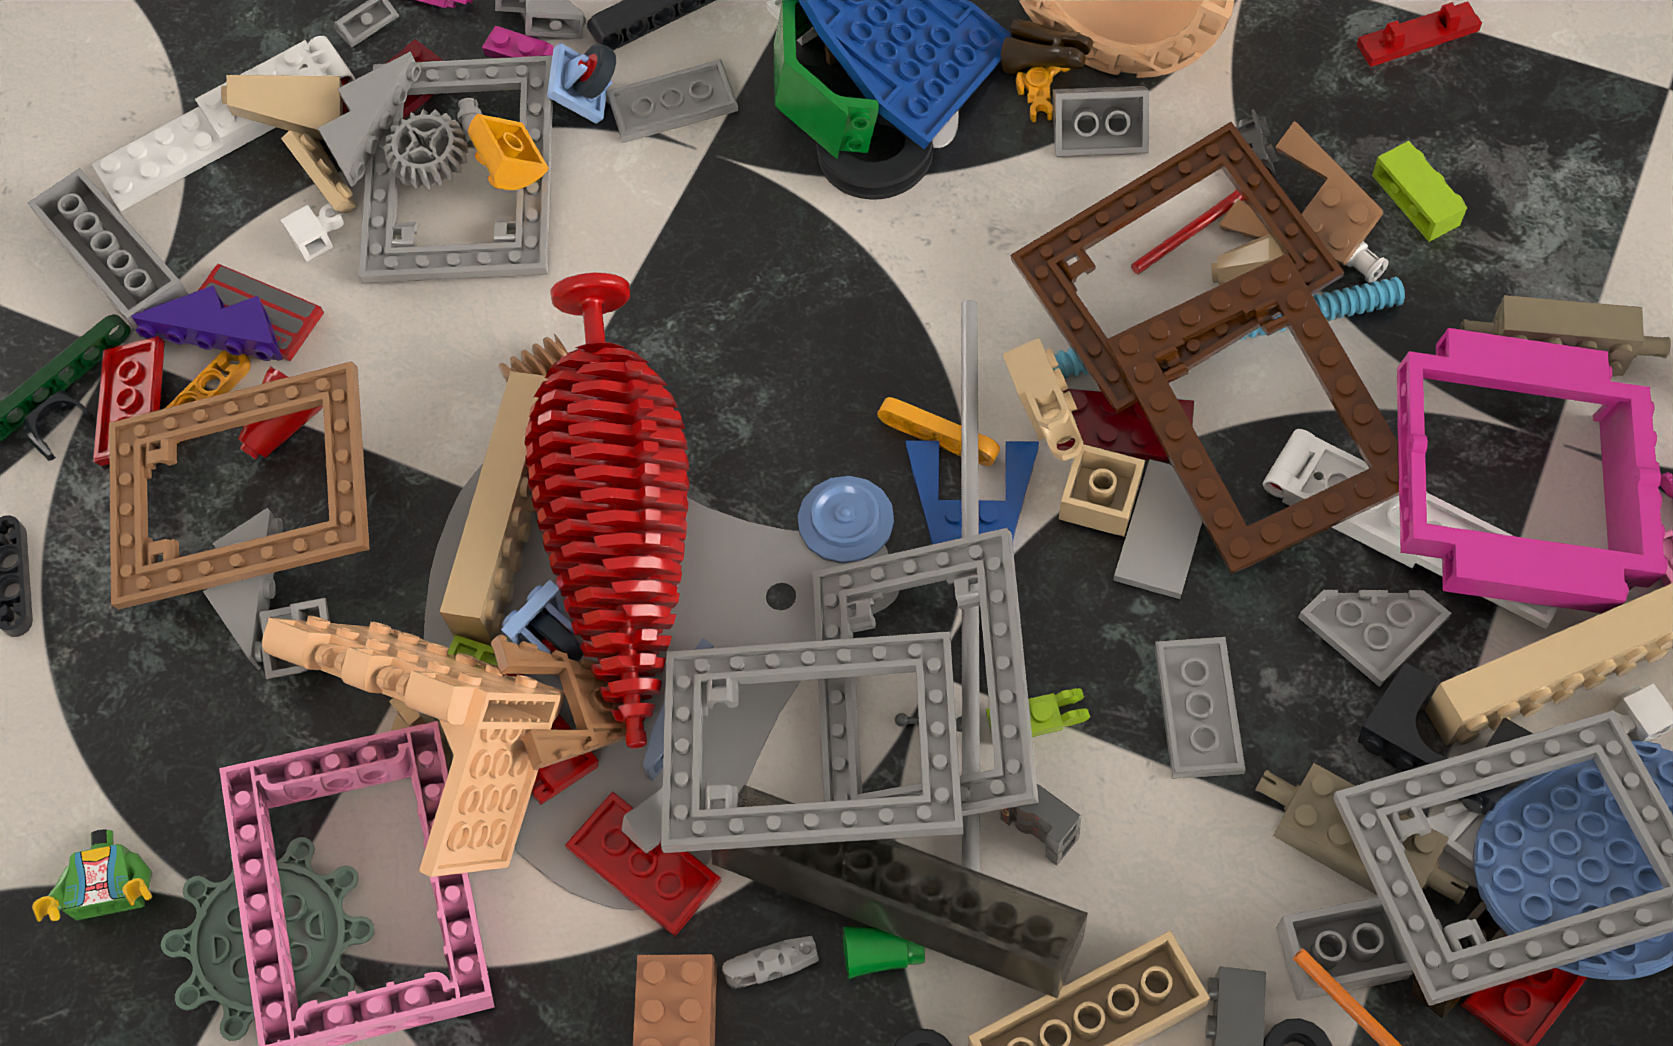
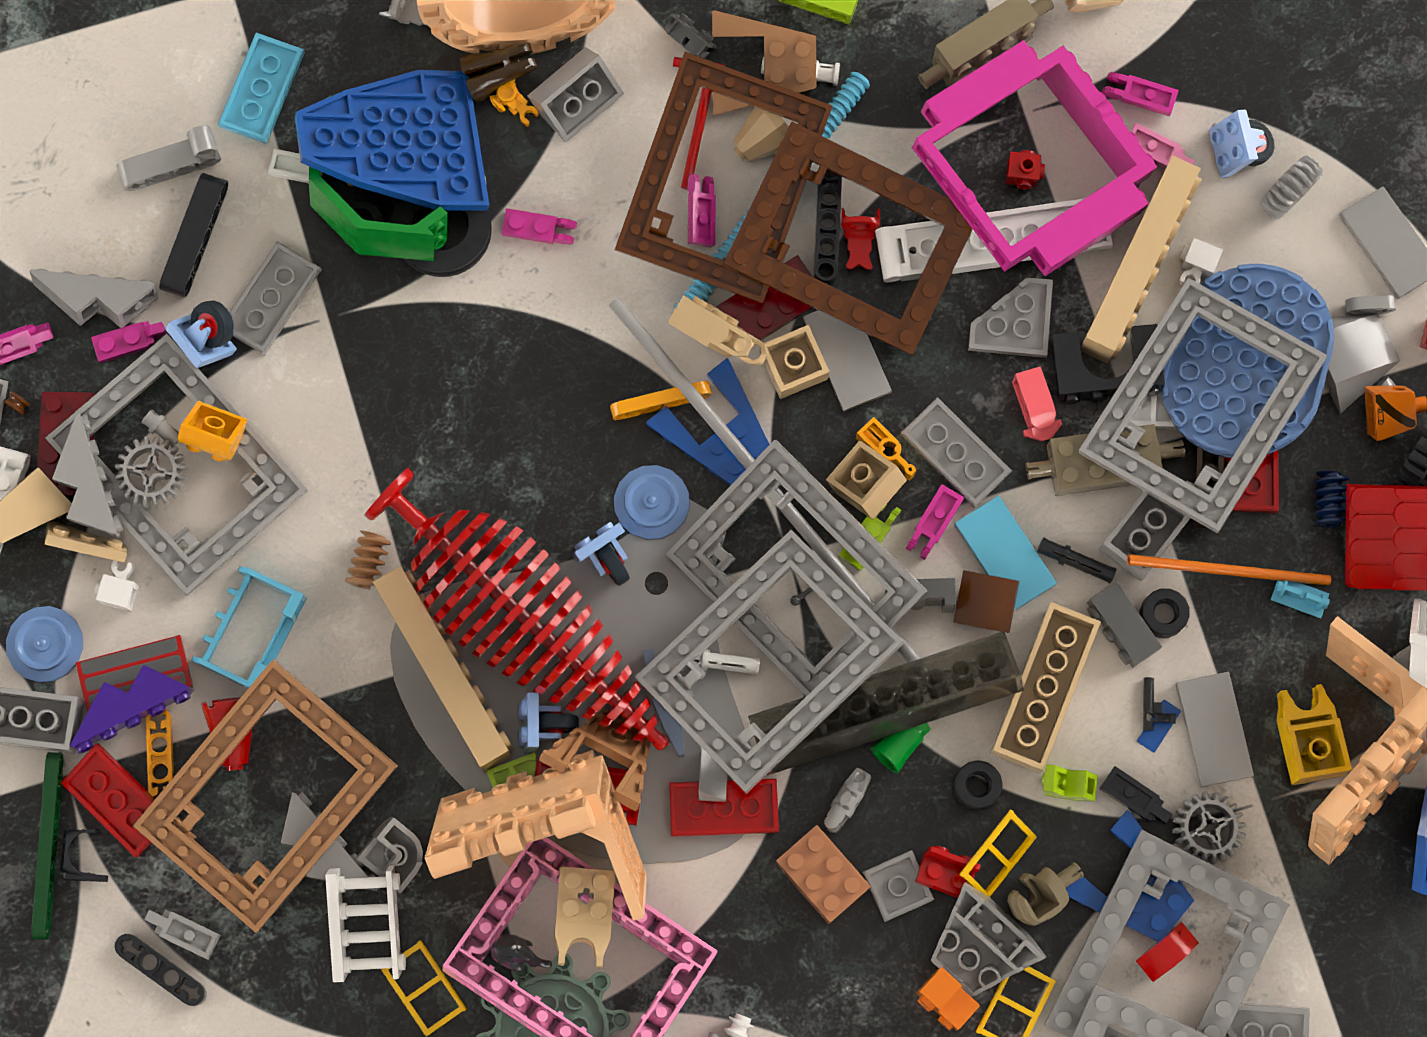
camera: 50 degrees left, 15 degrees up
(61, 559) = (184, 932): none -> light grey hinge
(179, 660) = (341, 938): none -> white fence
(179, 789) = (406, 1000): none -> yellow window
(212, 233) = (44, 644): none -> medium blue piece
(290, 810) = (513, 951): none -> black piece
(384, 835) = (581, 921): none -> tan brick
(385, 32) = (16, 403): none -> reddish brown bush
(431, 358) = (290, 614): none -> medium azure hinge
(752, 518) = (609, 561): none -> plate
(758, 702) = (728, 662): none -> white pin
(961, 205) = (536, 227): none -> dark pink hinge
(1076, 653) = (866, 479): none -> tan brick
(1101, 878) = (986, 601): none -> reddish brown slope
(1117, 754) = (936, 519): none -> dark pink hinge
(1125, 629) = (878, 438): none -> light orange piece
(1129, 298) = (701, 211): none -> dark pink hinge
(1166, 850) = (1005, 549): none -> medium azure tile
(1217, 879) = (1104, 573): none -> black pin
(1246, 405) = (824, 234): none -> black beam
(1273, 426) = (859, 233): none -> red hair
(1328, 721) = (1036, 404): none -> coral piece
(1507, 485) = (1024, 169): none -> red brick

